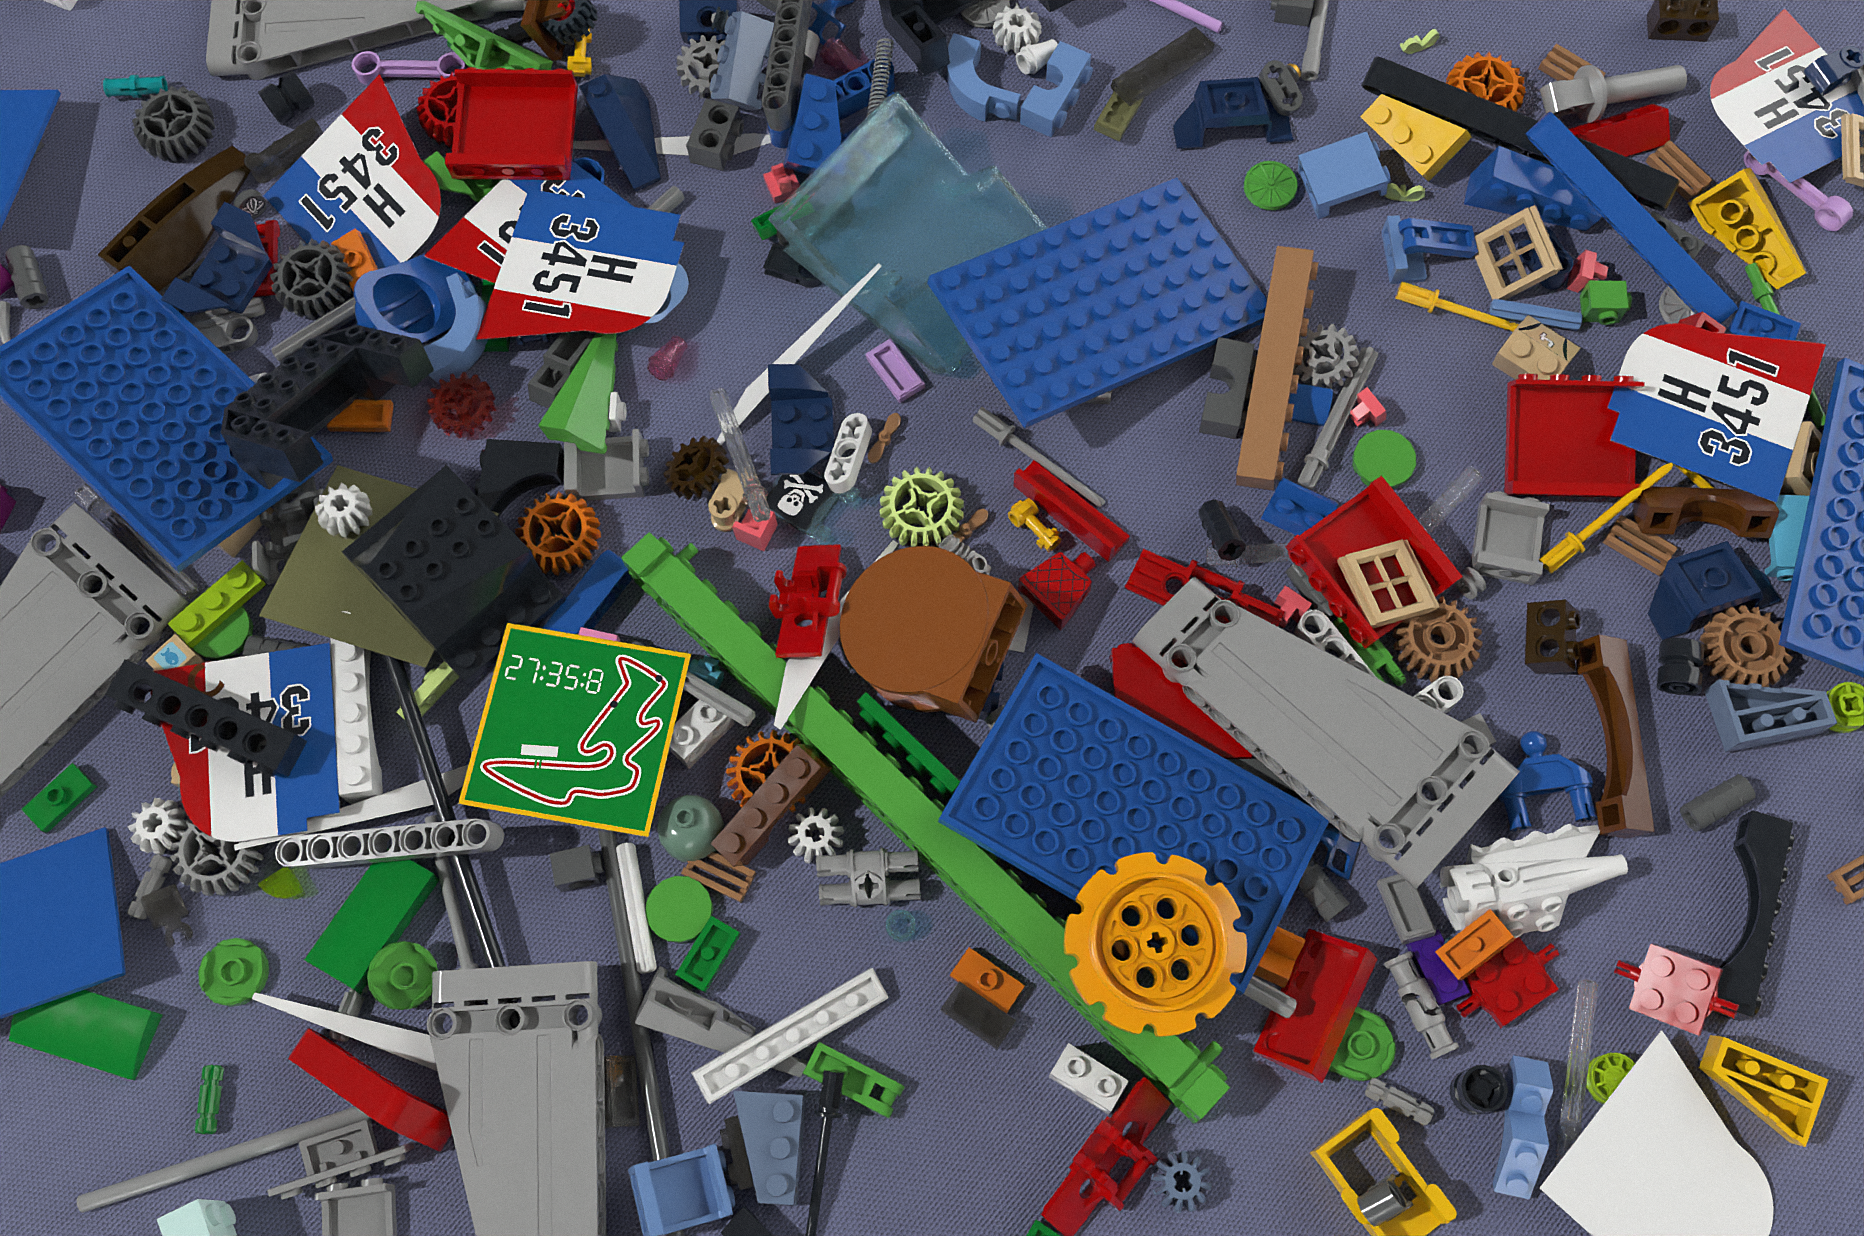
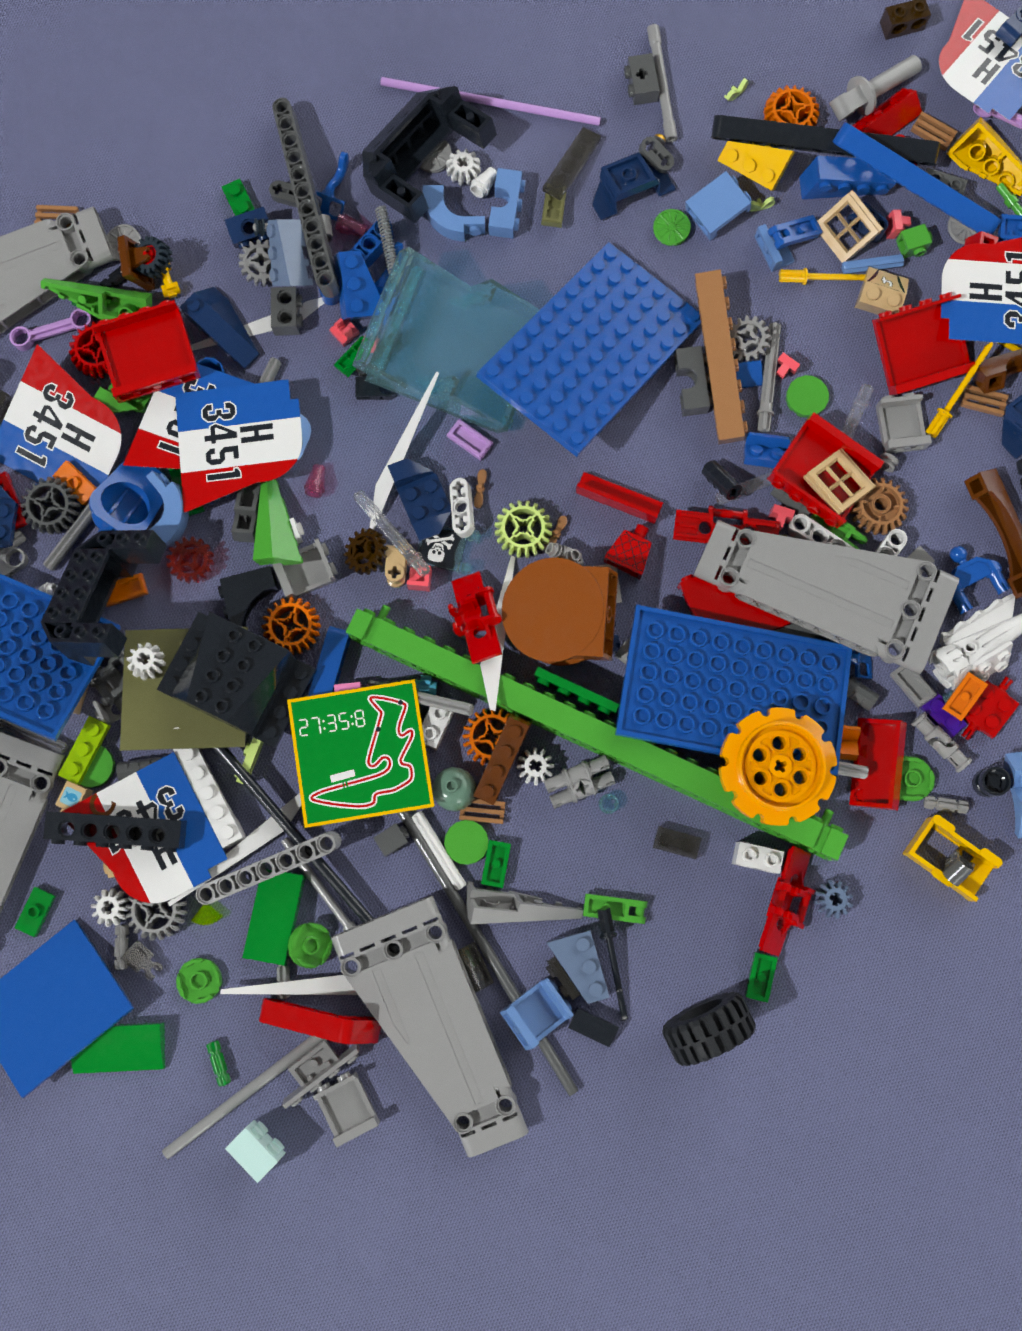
camera: 20 degrees left, 10 degrees up
(789, 1035) = (567, 896): white tile -> none
(987, 980) = (674, 819): orange plate -> none
(1004, 433) = (557, 459): light grey piece -> none
(1024, 513) = (590, 509): yellow bar -> none
(1543, 638) = (943, 484): dark brown brick -> none
(1565, 60) = (840, 74): medium nougat tile -> none

